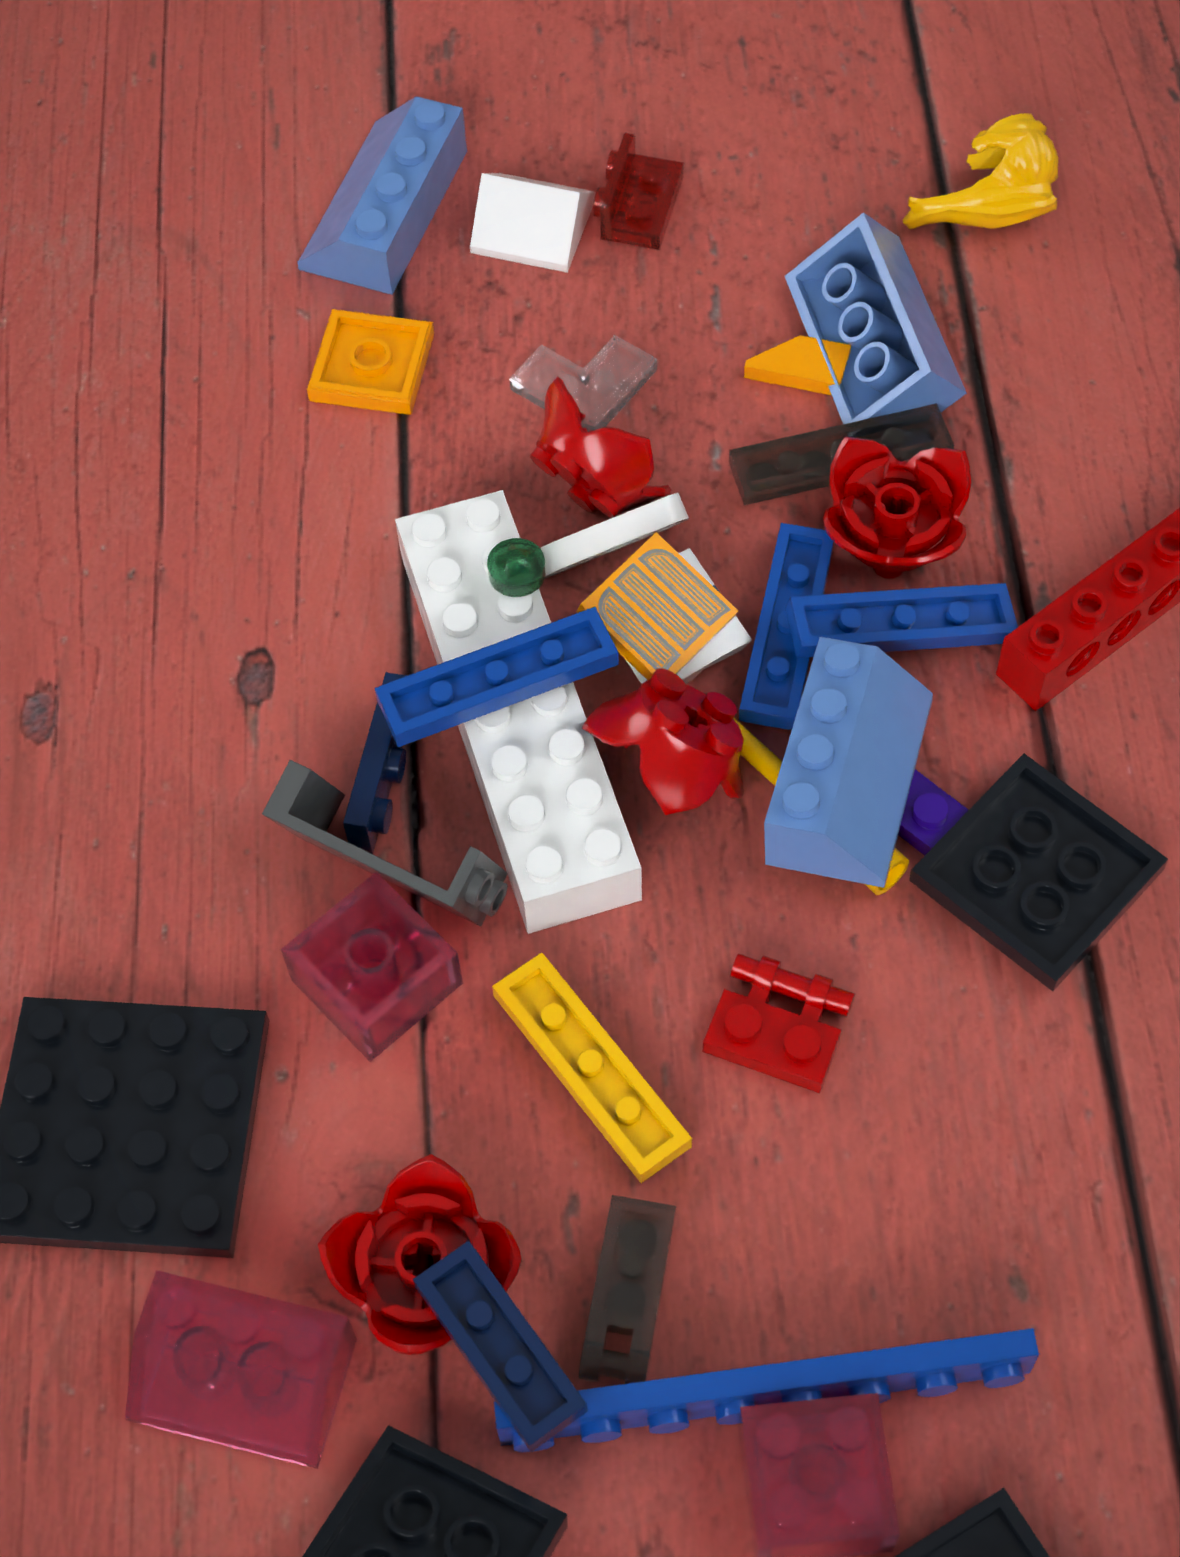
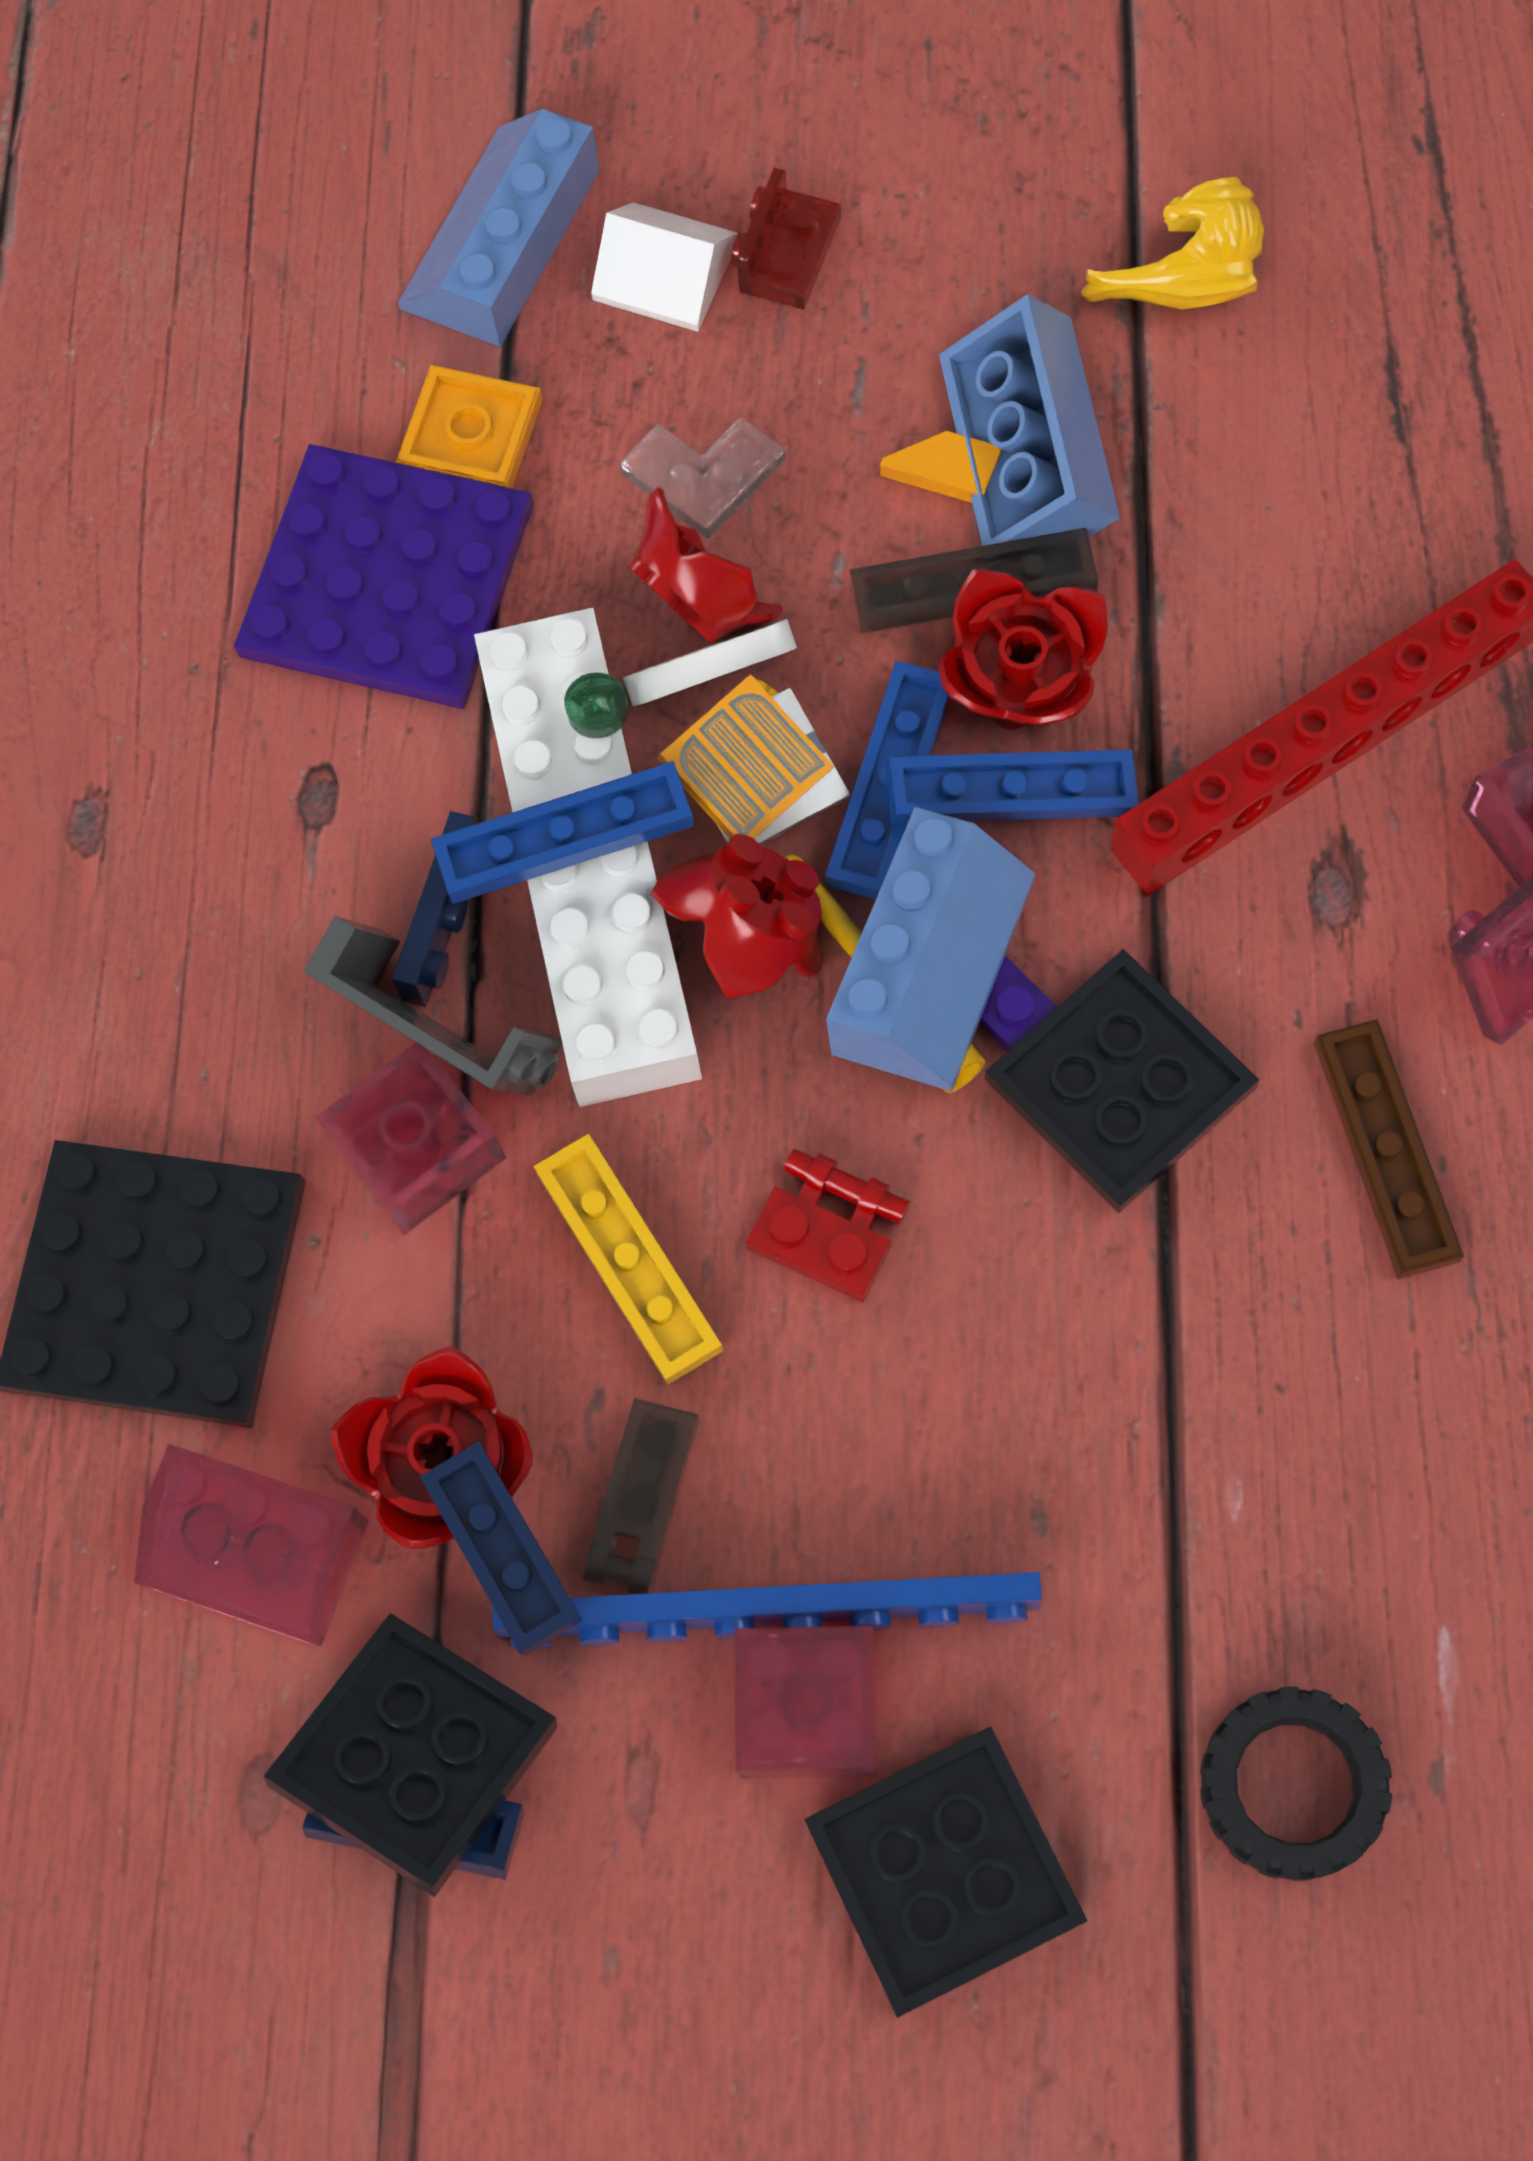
camera: 10 degrees right, 10 degrees up
(303, 485) = (384, 575): none -> dark purple plate

